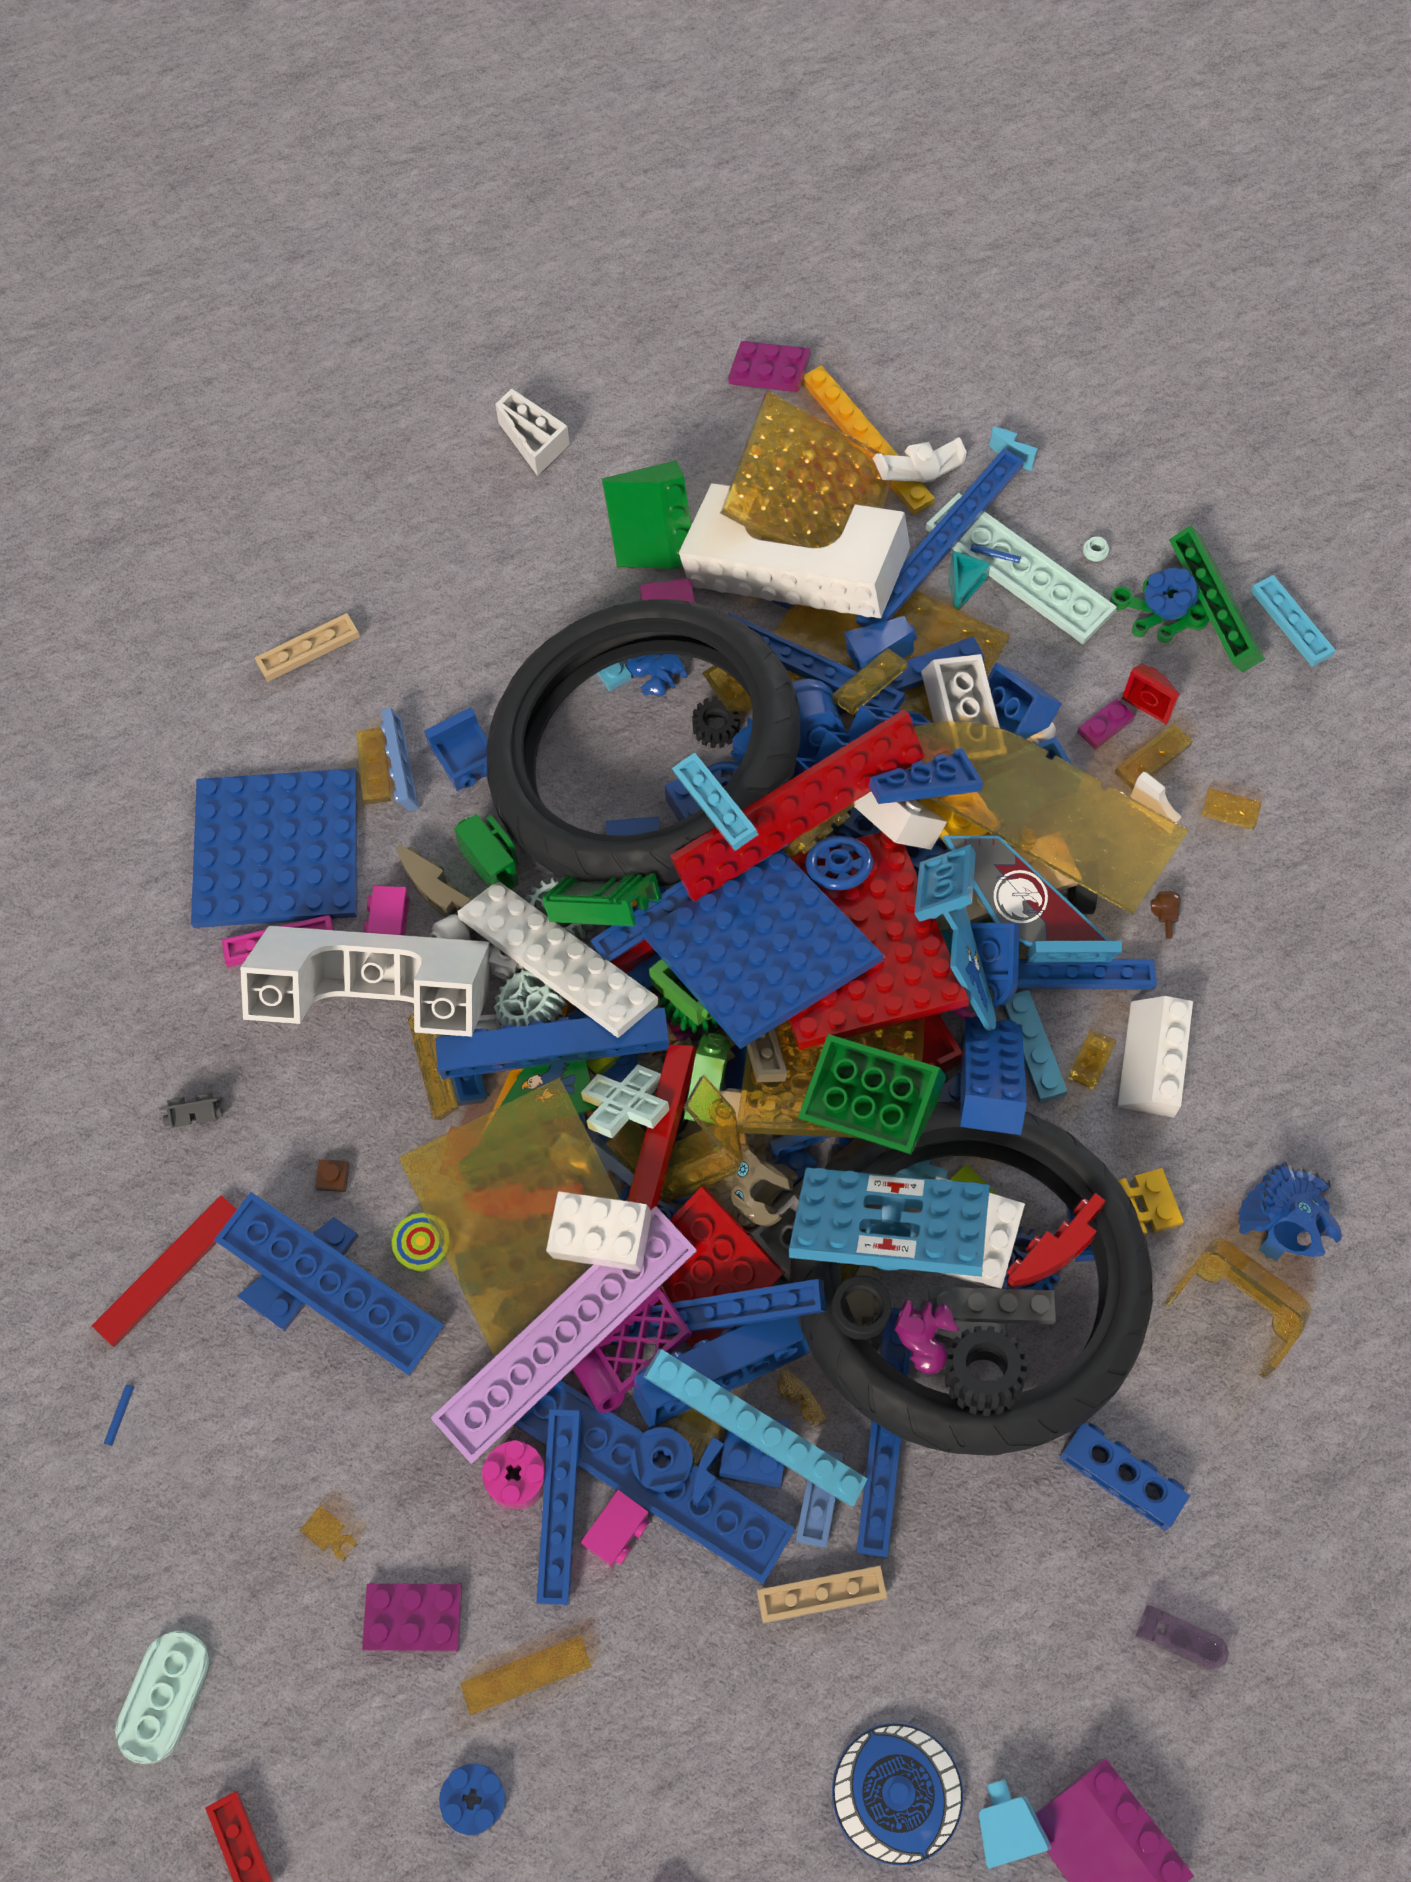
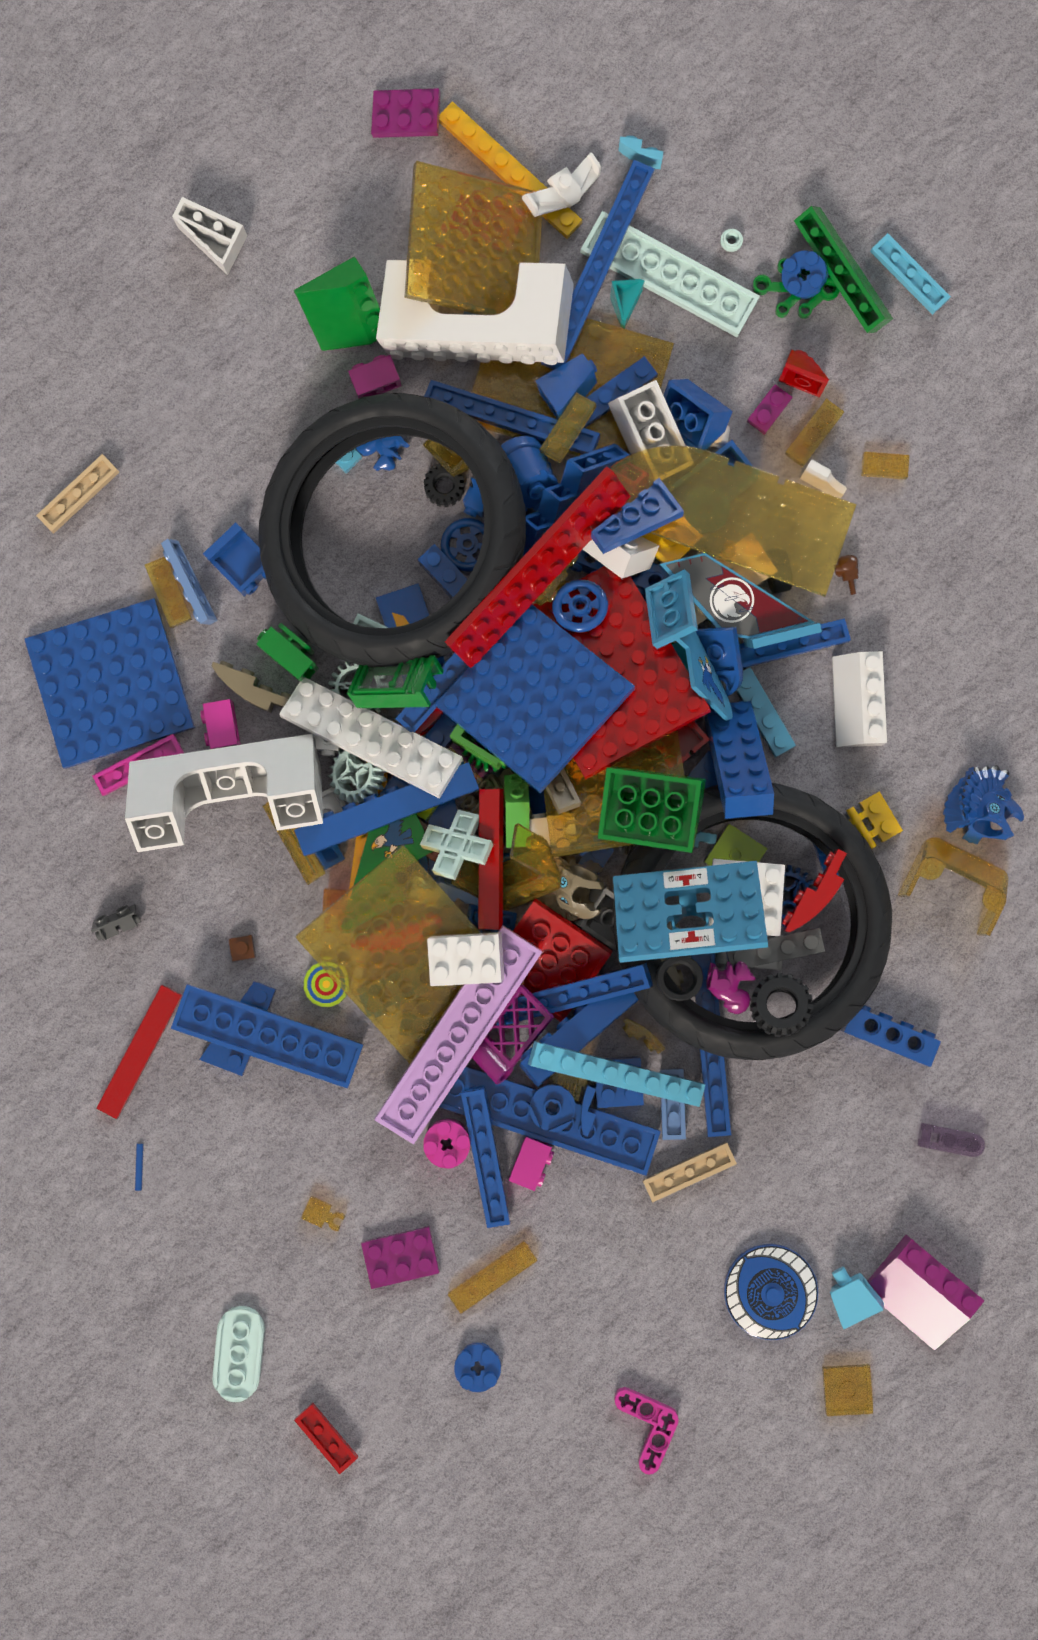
camera: 10 degrees left, 20 degrees up
(451, 928) = (276, 727): white head -> none
(715, 801) = (470, 588): medium azure plate -> none
(994, 553) = (646, 266): blue piece -> none
(1092, 1059) = (810, 715): clear yellow slope -> none

